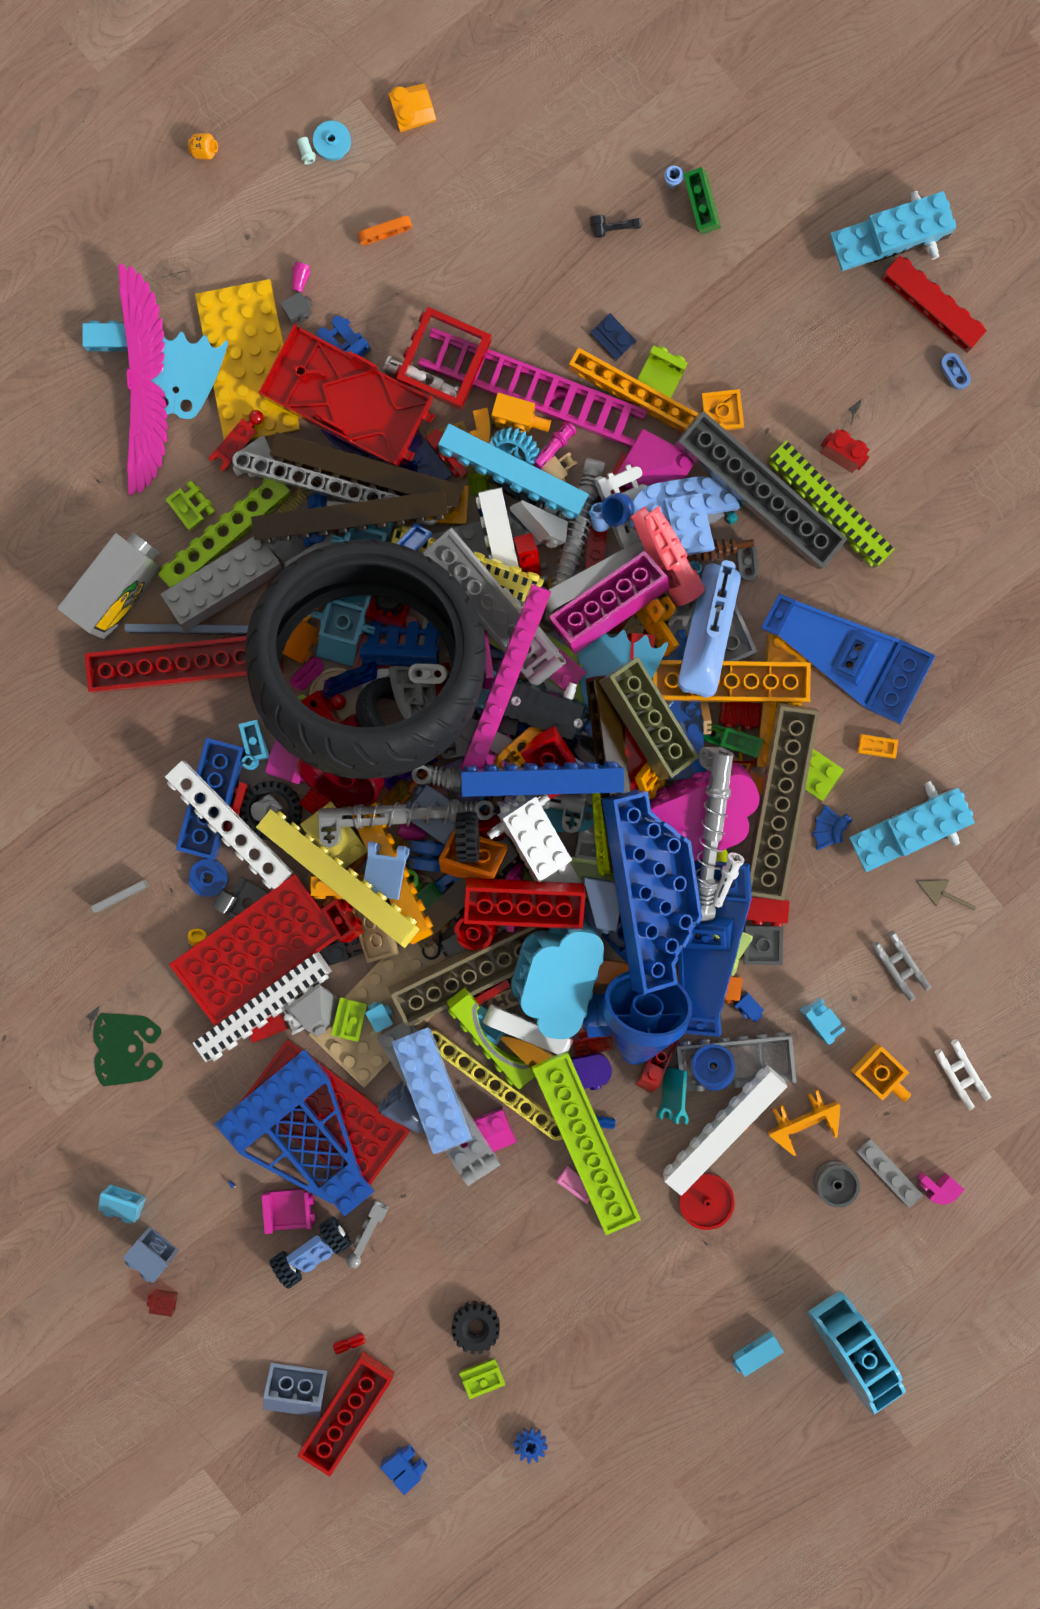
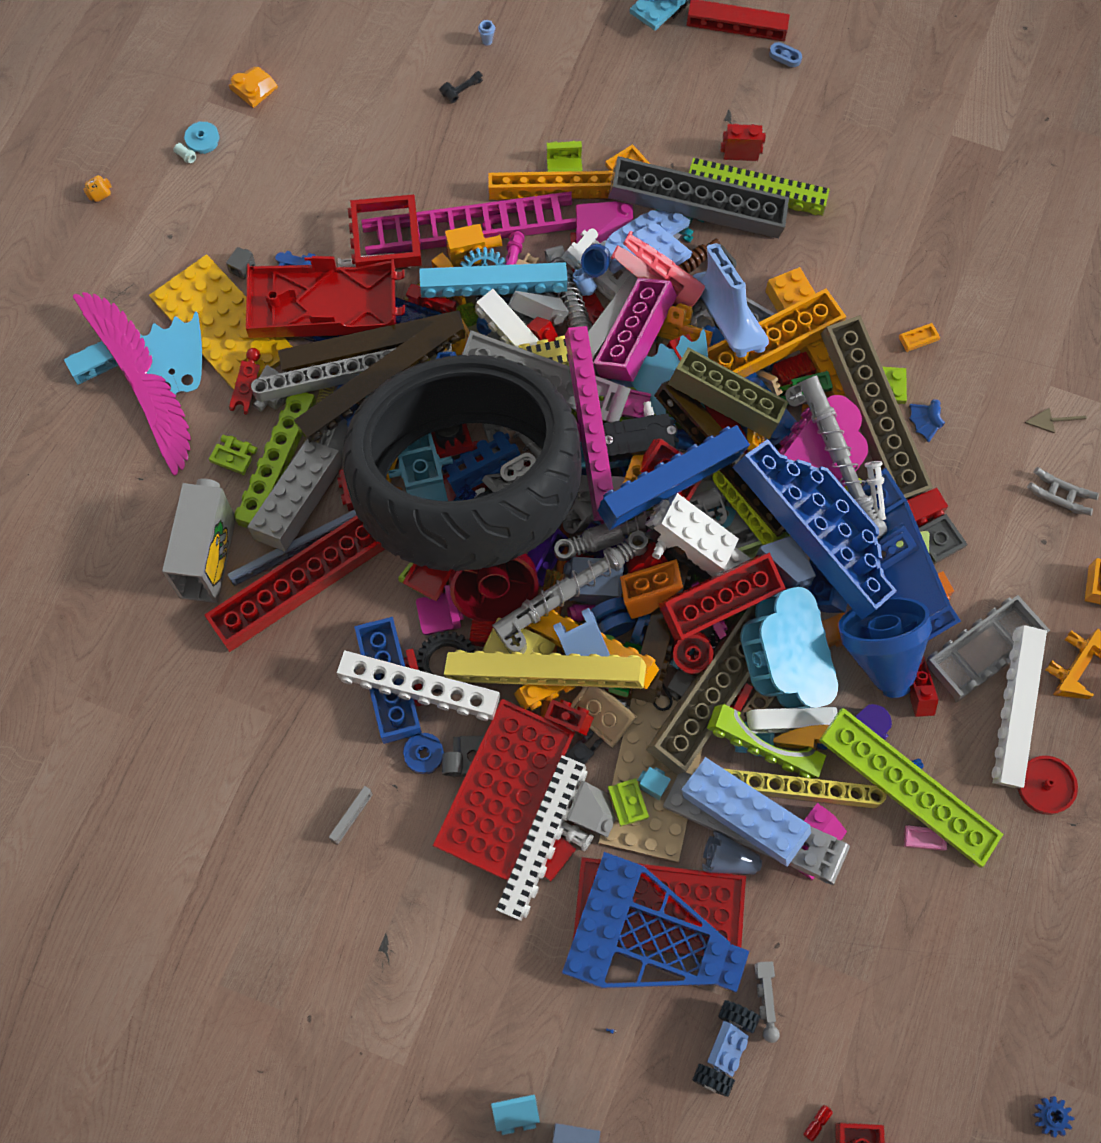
camera: 35 degrees left, 20 degrees down
(118, 1036) = (424, 968): dark green piece -> none
(195, 936) = (441, 812): yellow tile -> none
(254, 744) = (403, 614): medium azure hinge -> none
(261, 808) = (438, 660): light grey piece -> none
(287, 1210) = (680, 1022): dark pink panel -> none
(300, 274) = (230, 239): dark pink cone -> none
(384, 230) = (281, 175): orange beam -> none
(467, 837) = (639, 563): black tyre -> none
(479, 1341) = (941, 1026): black tyre -> none
(482, 1378) = (964, 1078): lime plate -> none
(584, 1045) = (855, 697): clear red plate -> none
(595, 1021) = (848, 671): blue brick -> none
(613, 337) = (509, 159): dark blue plate -> none
(674, 1095) = (956, 702): teal flag -> none
(702, 200) = (519, 36): green brick -> none
(720, 1058) = (973, 654): blue wheel -> none
(749, 1007) = (965, 594): blue brick -> none
(822, 1020) = (1035, 571): medium azure panel -> none
(883, 672) = (886, 279): blue wing -> none
(914, 828) = (994, 376): medium azure piece -> none

